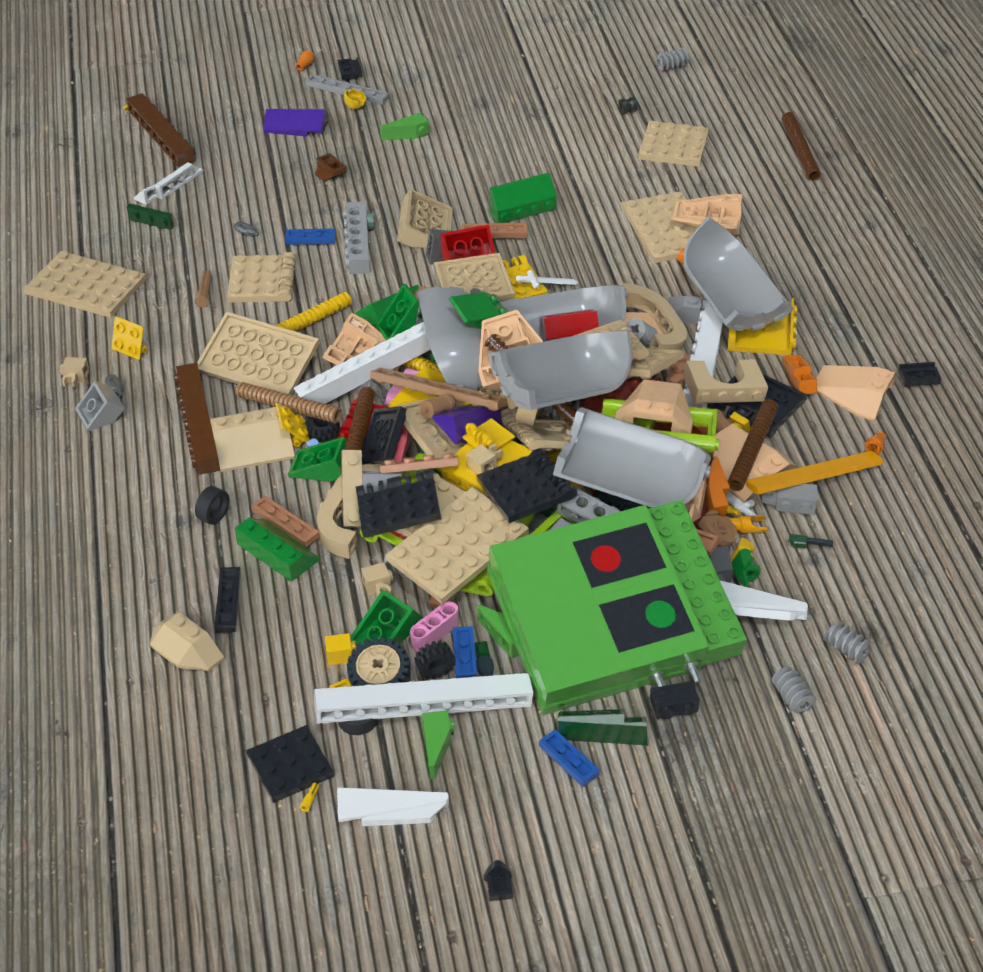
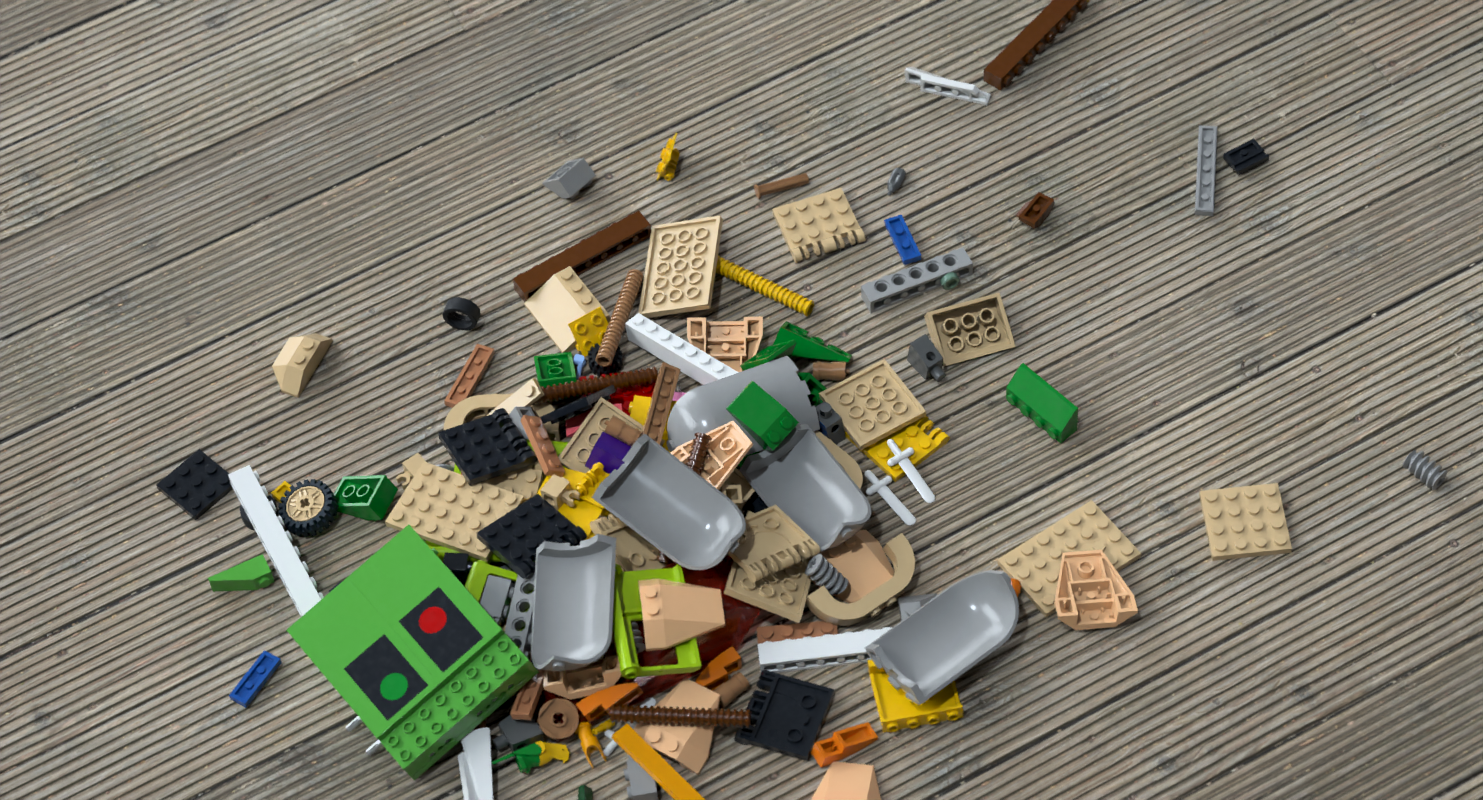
camera: 75 degrees right, 10 degrees up
(74, 370) = (612, 138): tan brick -> none
(85, 284) = (751, 89): tan plate -> none
(114, 382) = (609, 176): dark grey piece -> none
(150, 216) = (874, 93): dark green plate -> none
(227, 599) = (361, 371): black plate -> none
(274, 548) = (432, 382): green slope -> none
(295, 121) = (1109, 147): dark purple slope -> none
(305, 60) = (1241, 109): orange cone -> none
(309, 798) = (166, 510): yellow pin -> none
(338, 648) = (325, 471): yellow brick -> none
(354, 99) = (1178, 183): yellow hair -> none
(389, 806) = (165, 567): white wedge -> none
(405, 128) = (1147, 255): bright green slope -> none
(434, 625) = (366, 528): bright pink beam -> none
(435, 660) = (327, 544): black tyre -> none
(464, 652) = (342, 568): blue plate -> none
(467, 243) = (924, 380): red slope -> none
(498, 881) = (115, 668): black tile -> none
(503, 230) = (984, 397): nougat plate -> none
(569, 323) = (810, 505): red slope -> none
(603, 727) = (299, 692): dark green slope -> none
(627, 105) = (1299, 452): pearl dark grey wheel -> none
(674, 700) = (341, 740): black brick -> none
(706, 389) = (783, 698): tan arch -> none
(740, 422) = (738, 702): yellow plate -> none
(801, 146) = (1296, 653): reddish brown piece -> none

